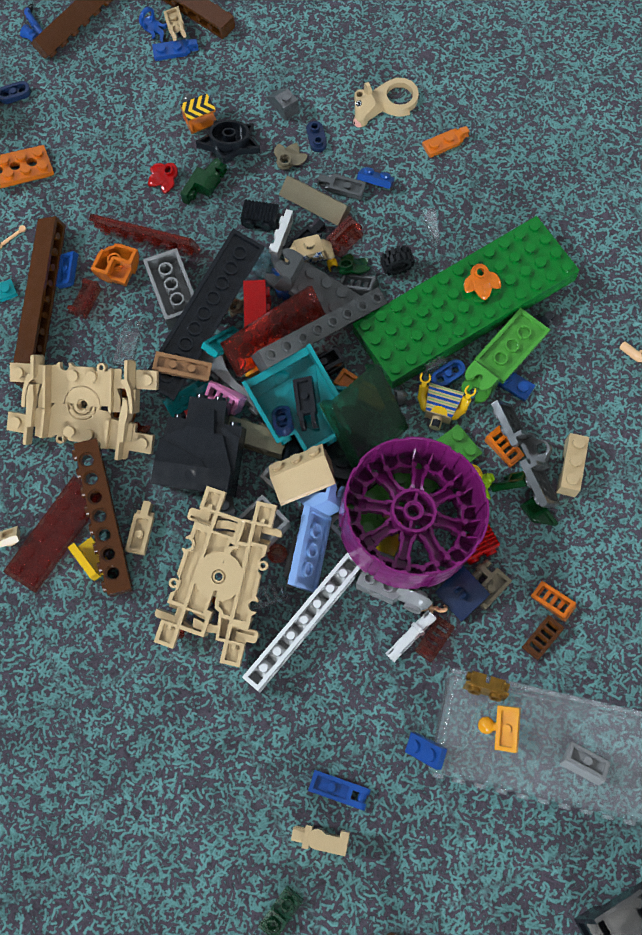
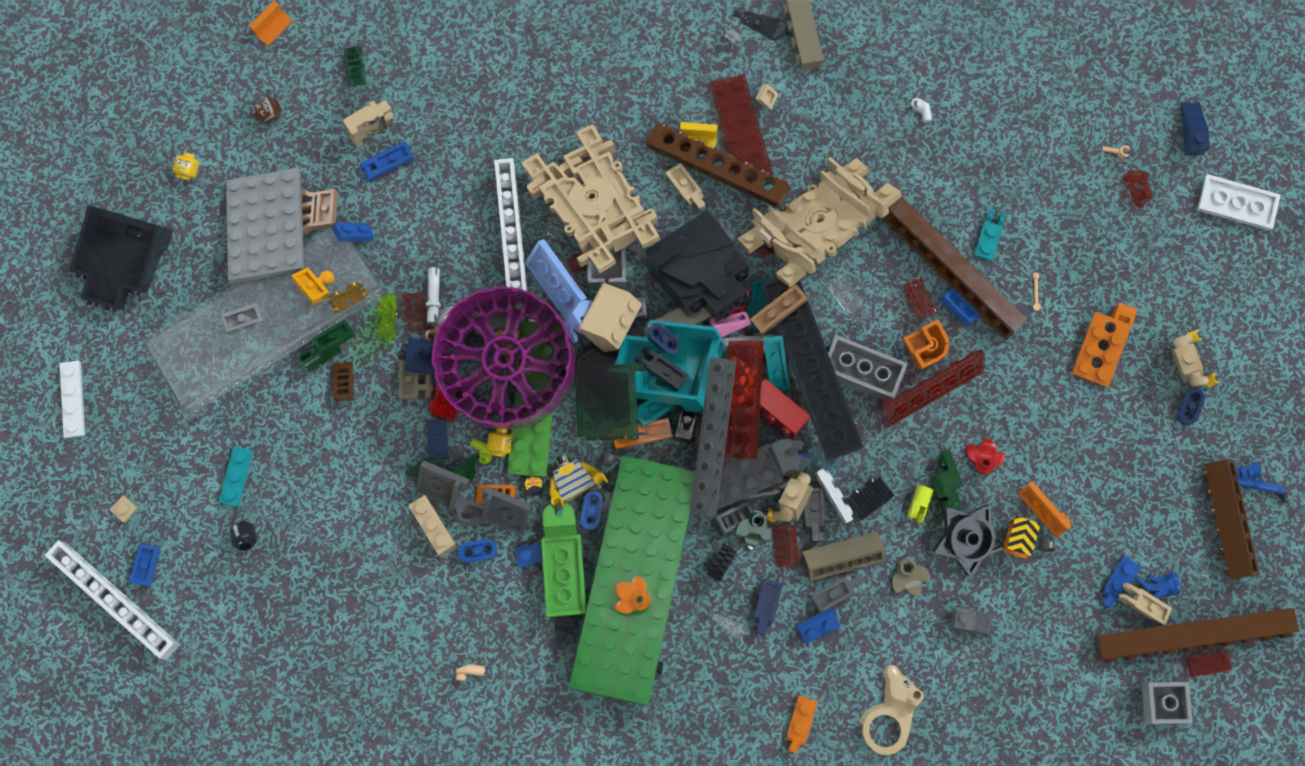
camera: 130 degrees right, 5 degrees up
(168, 109) = (1045, 510): none -> orange hinge
(233, 186) = (920, 503): none -> neon yellow hinge
(316, 135) = (909, 619): dark blue plate -> none
(394, 217) = (767, 605): none -> dark blue hinge
(432, 796) = (322, 208): none -> medium nougat plate
(464, 649) = (387, 314): none -> clear neon green plate
(471, 428) = (533, 484): none -> tile
(493, 835) = (264, 225): none -> light grey plate
(510, 525) = (437, 439): none -> dark blue plate
(532, 675) = (326, 345): none -> dark green plate
(555, 420) = (477, 549): none -> blue plate
(557, 595) = (359, 421): orange slope -> none

